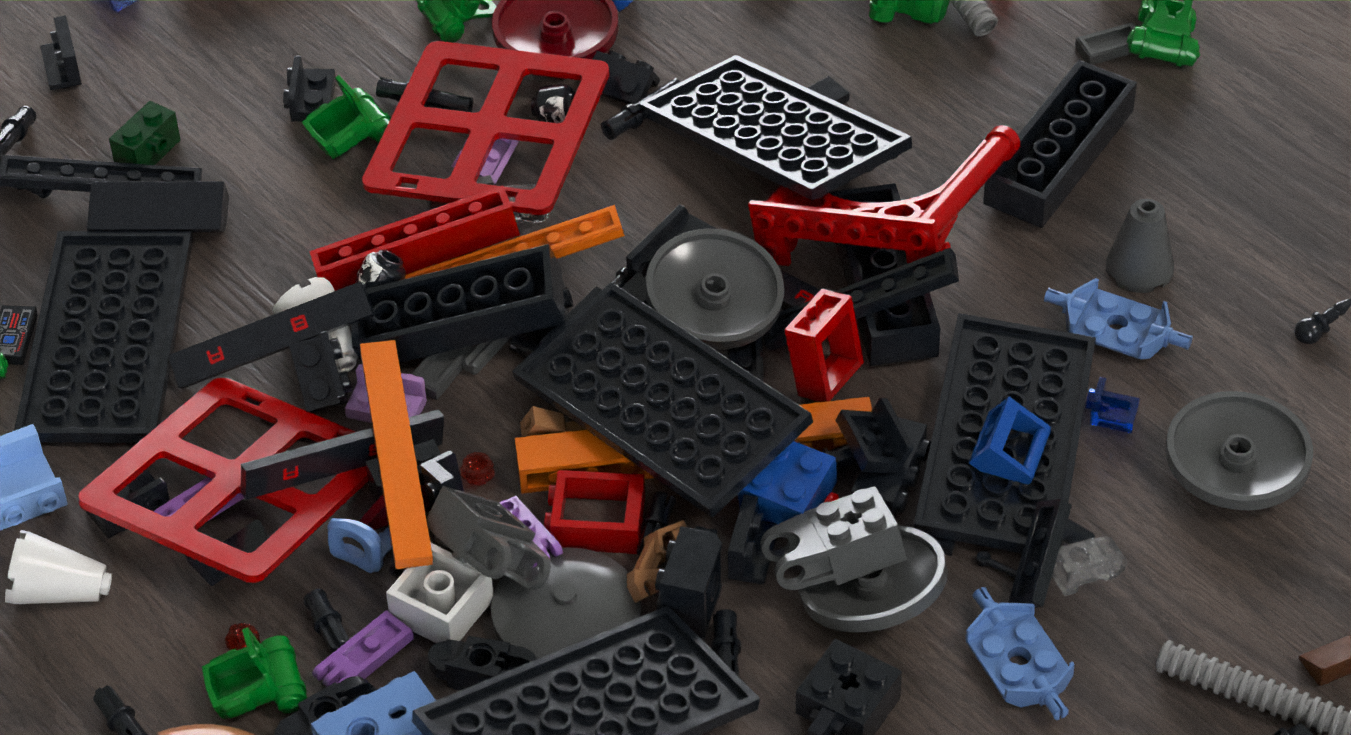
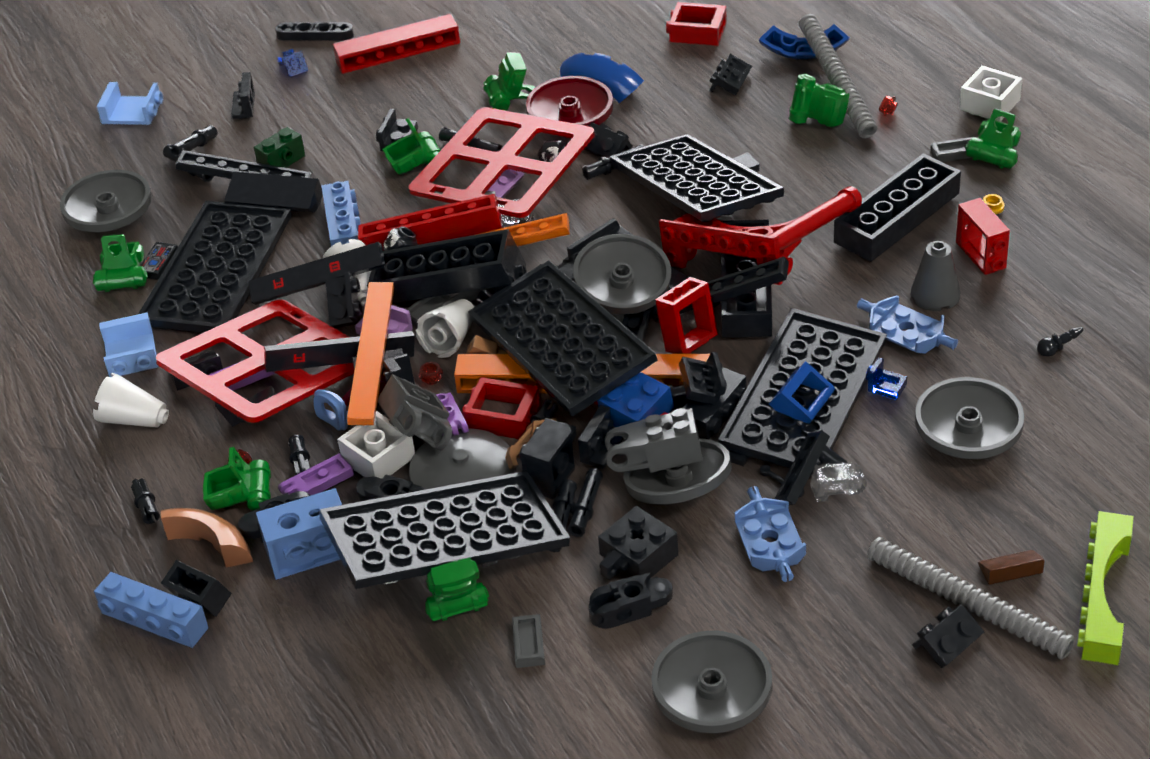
camera: 15 degrees right, 5 degrees down
(272, 237) = (341, 212): none -> medium blue brick
(482, 398) = (444, 328): none -> white cone
(755, 651) = (582, 510): none -> black pin
(1179, 149) = (987, 254): none -> red window
(1182, 124) = (994, 202): none -> yellow plate

